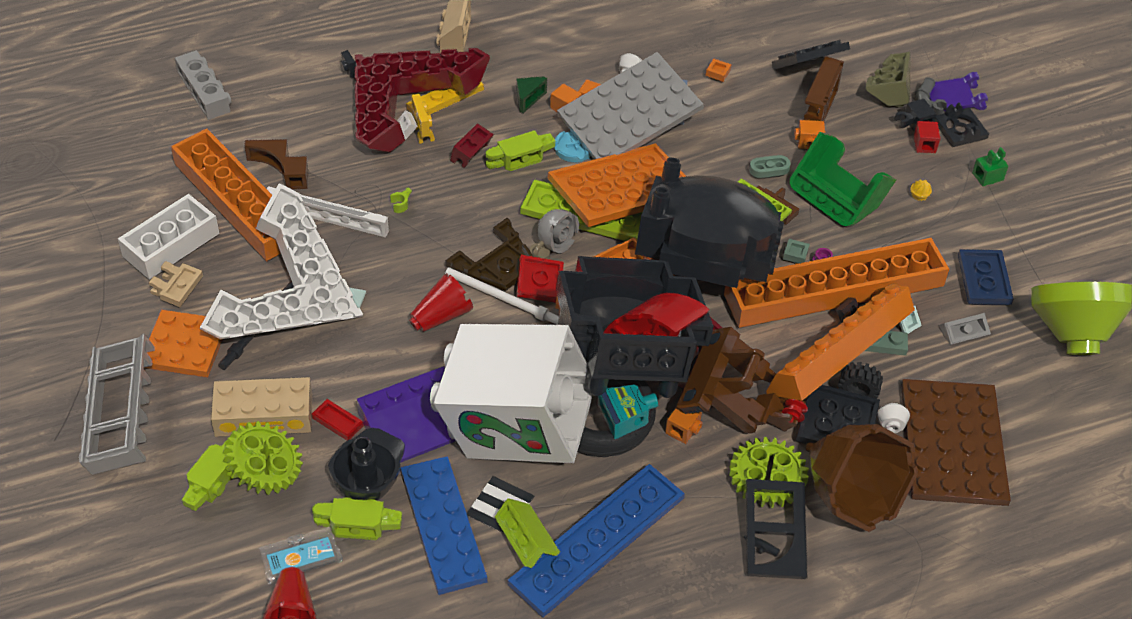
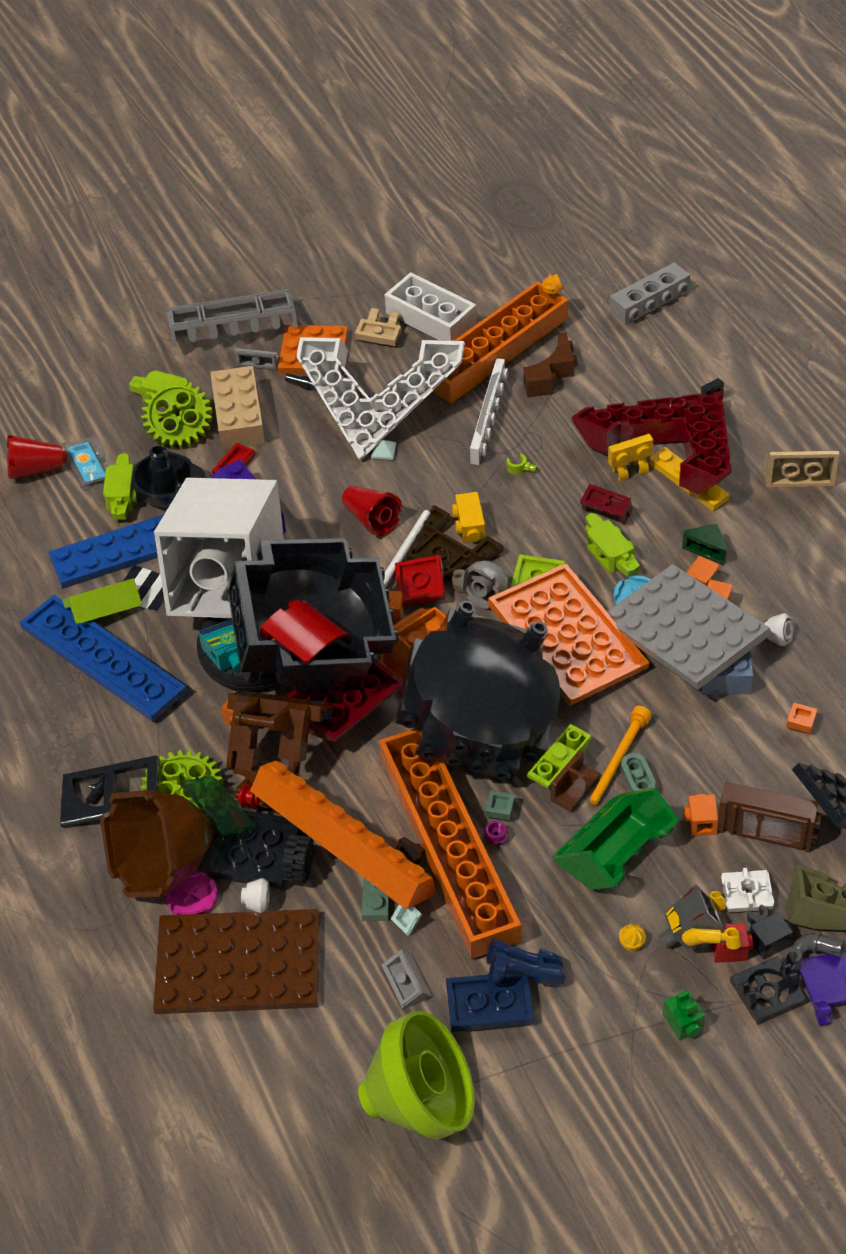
camera: 90 degrees right, 0 degrees up
(185, 390) = (256, 358): none -> light grey slope
(190, 130) = (552, 284): none -> light orange plate
(466, 237) = (470, 517): none -> yellow brick
(711, 158) = (639, 718): none -> light orange piece
(806, 433) = (218, 805): none -> clear green piece
(877, 123) = (738, 900): none -> white piece
(916, 146) = (696, 921): none -> torso
(952, 242) = (541, 966): none -> dark blue piece

